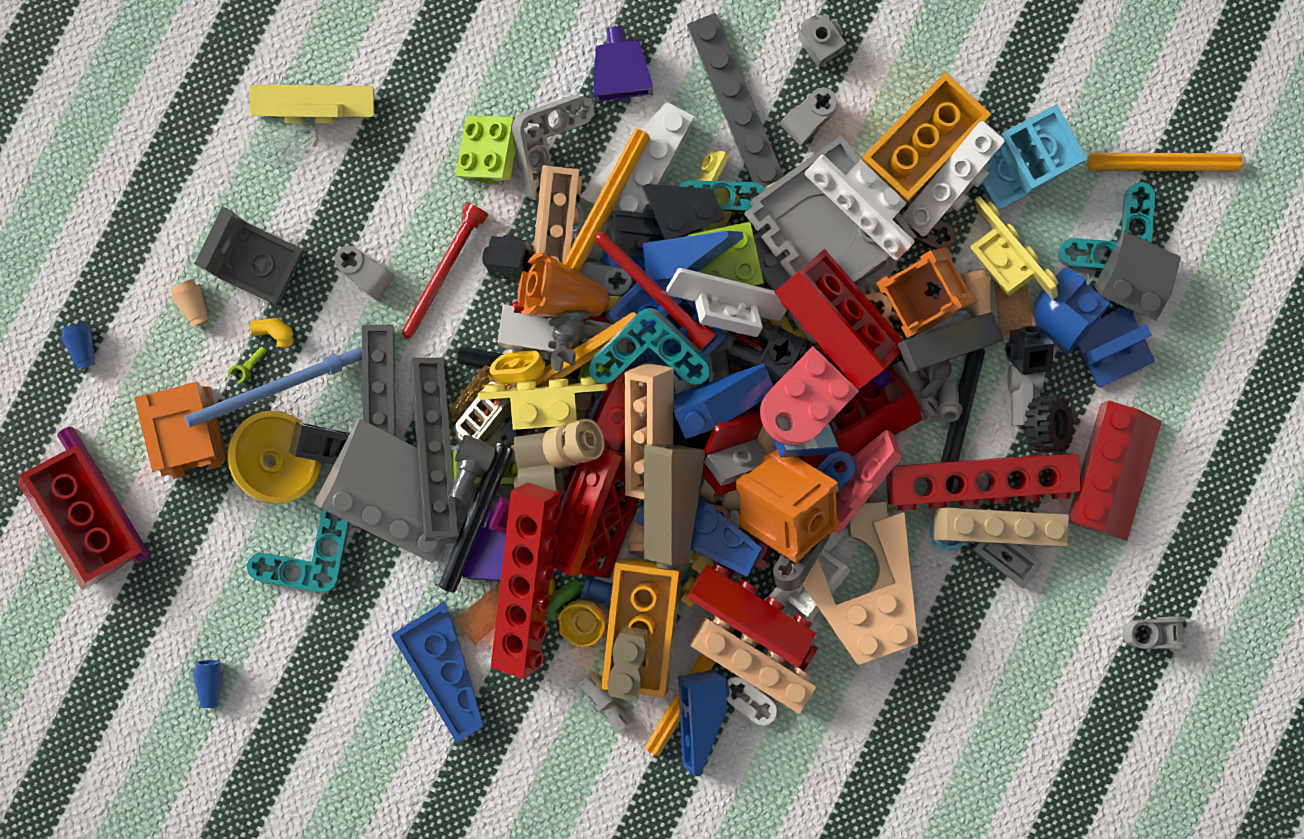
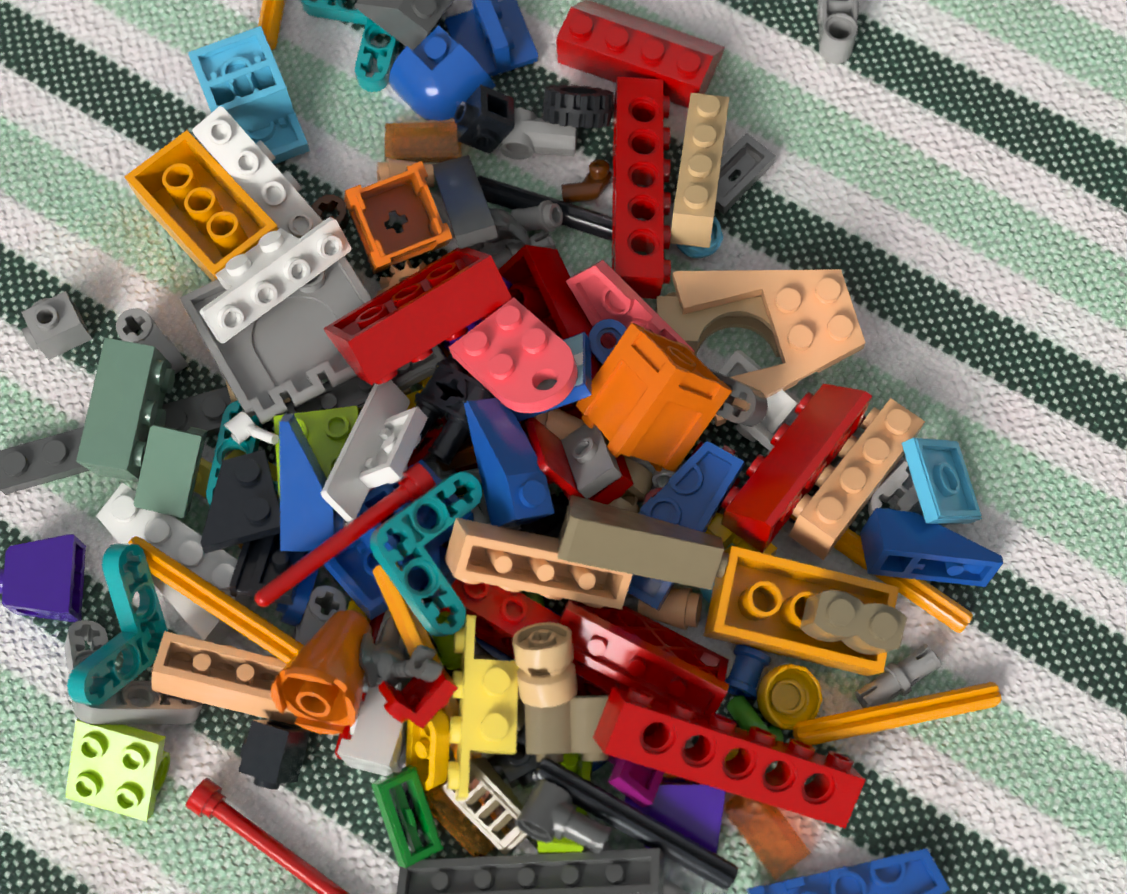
camera: 85 degrees left, 15 degrees down
(490, 347) = (394, 782): none -> green tile
(539, 355) = (418, 699): none -> red bracket
(575, 150) = (141, 634): none -> teal beam
(576, 702) = (897, 714): none -> light orange axle
(702, 151) = (170, 470): none -> sand green panel
(740, 198) = (243, 427): none -> white hand
(745, 111) = (123, 408): none -> sand green brick
(755, 728) = (941, 481): none -> medium azure tile
(985, 442) = (591, 186): none -> reddish brown arm
(1006, 258) = (364, 133): light yellow bracket -> none

